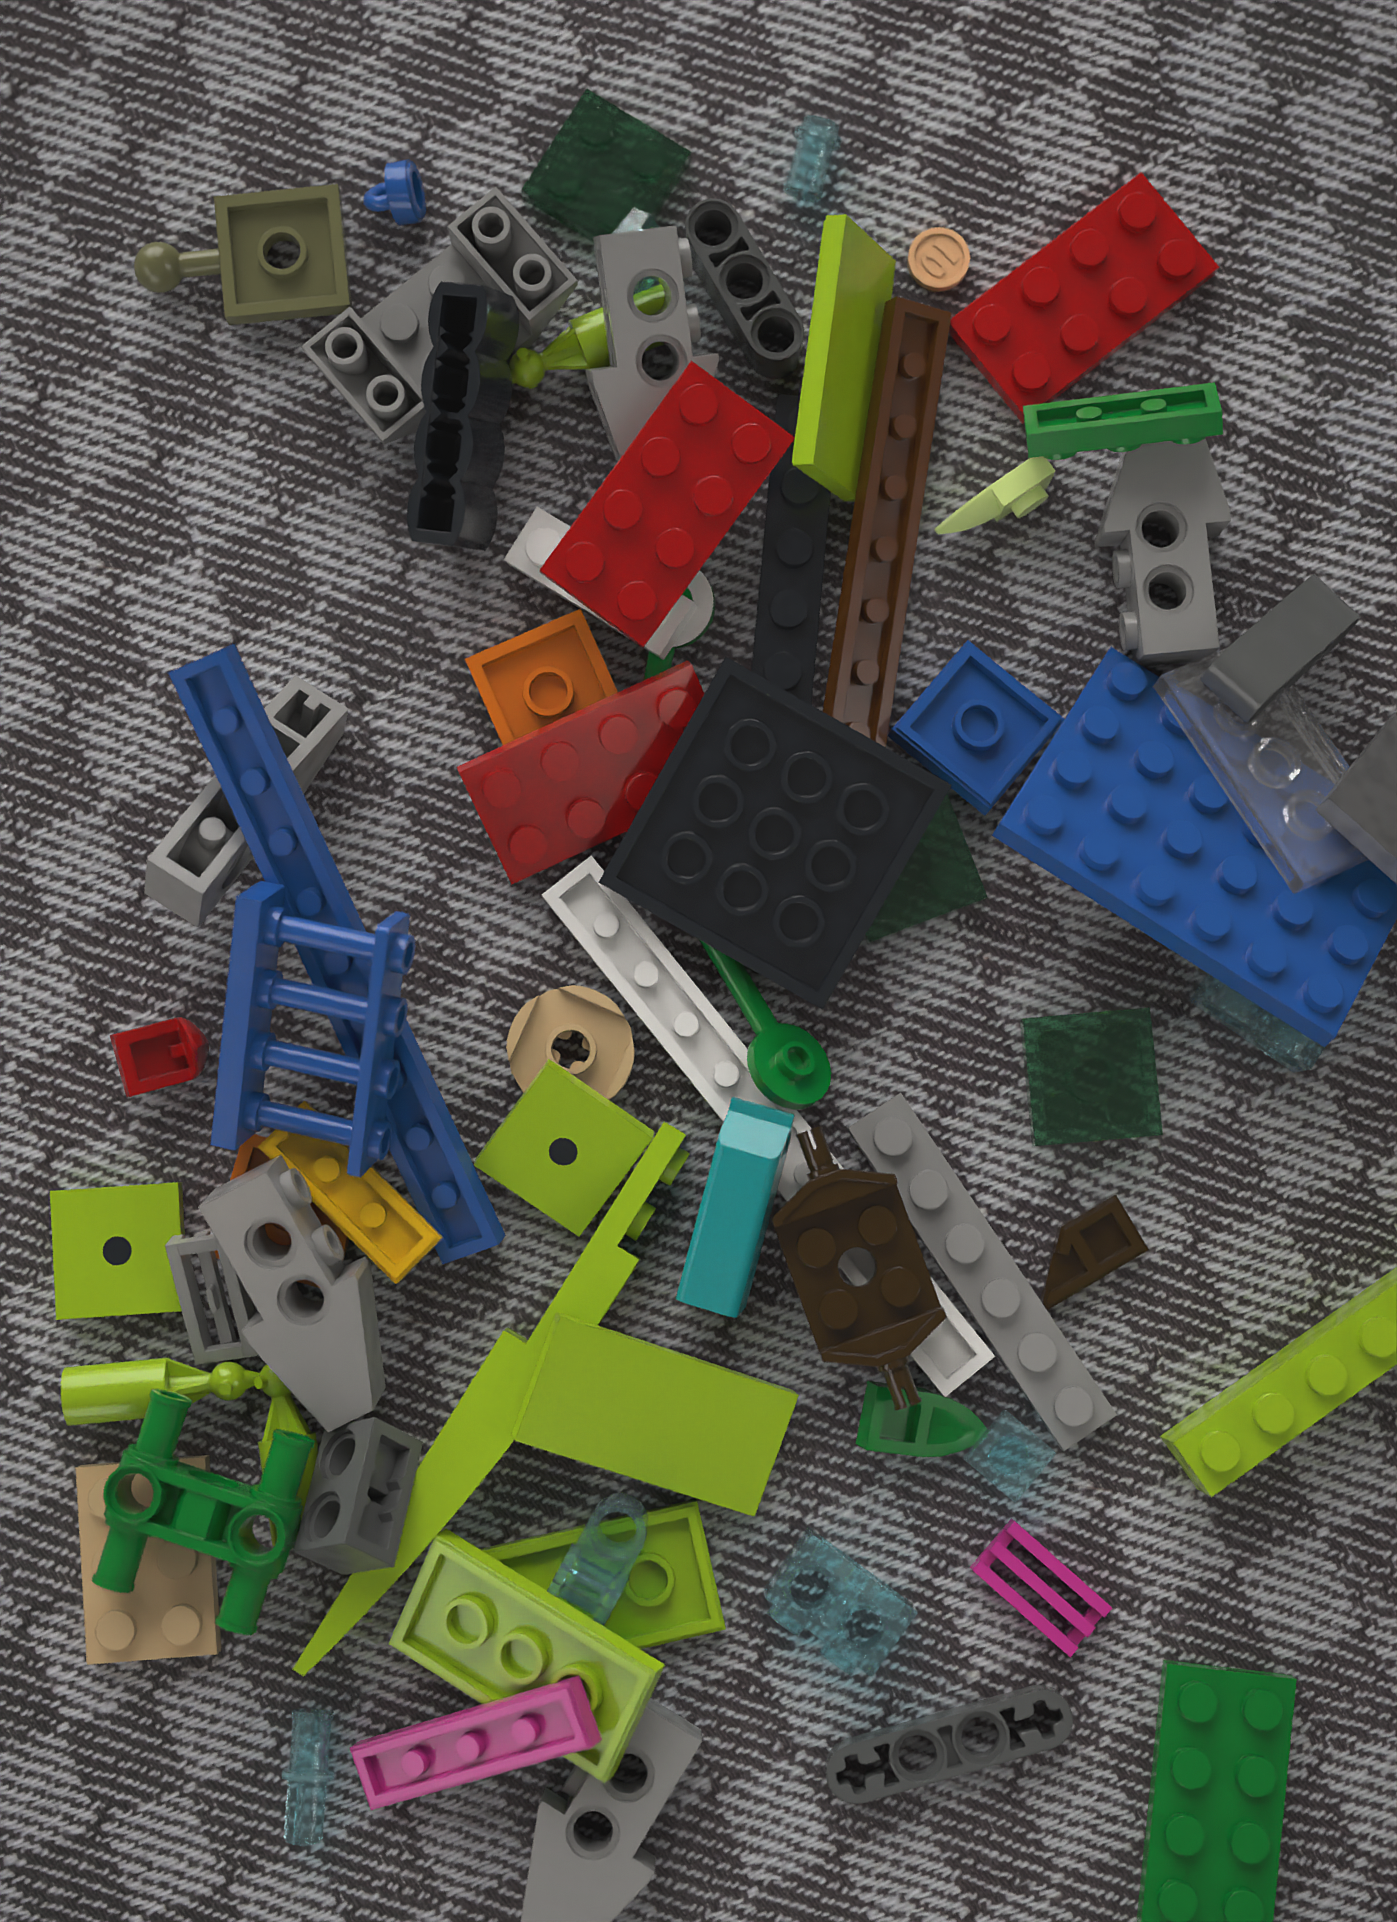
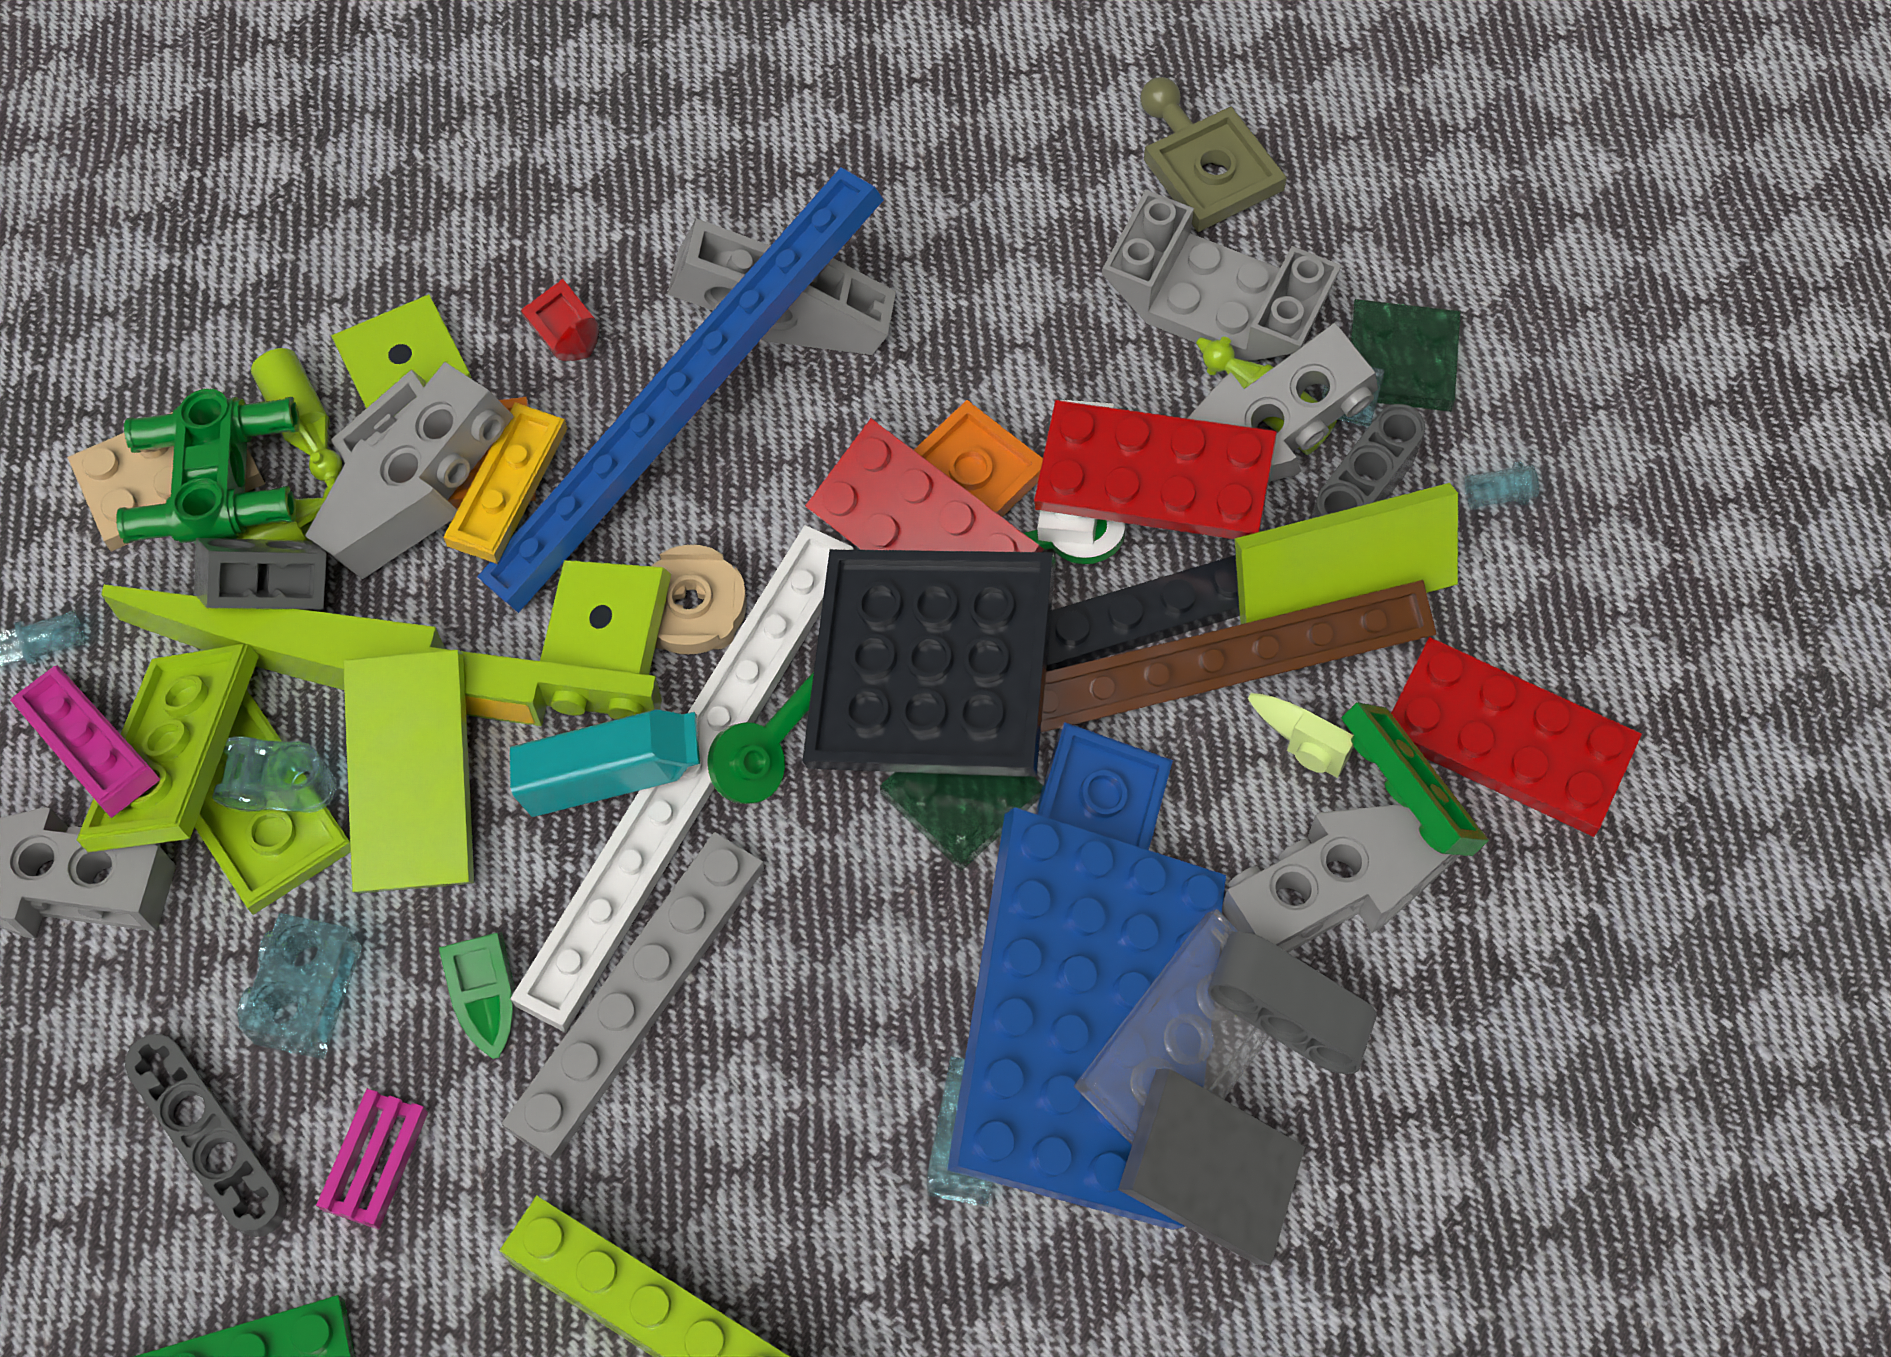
camera: 70 degrees right, 20 degrees down
(250, 1047) = (601, 346): blue fence -> none
(399, 193) = (1305, 222): blue tile -> none
(465, 400) = (1150, 313): black brick -> none
(892, 1311) = (614, 830): dark brown plate -> none
(938, 259) = (1478, 616): light nougat piece -> none
(1009, 1455) = (479, 1078): clear light blue plate -> none
(1090, 1249) = (692, 1078): dark brown tile -> none
(1091, 1077) = (843, 1011): clear green plate -> none

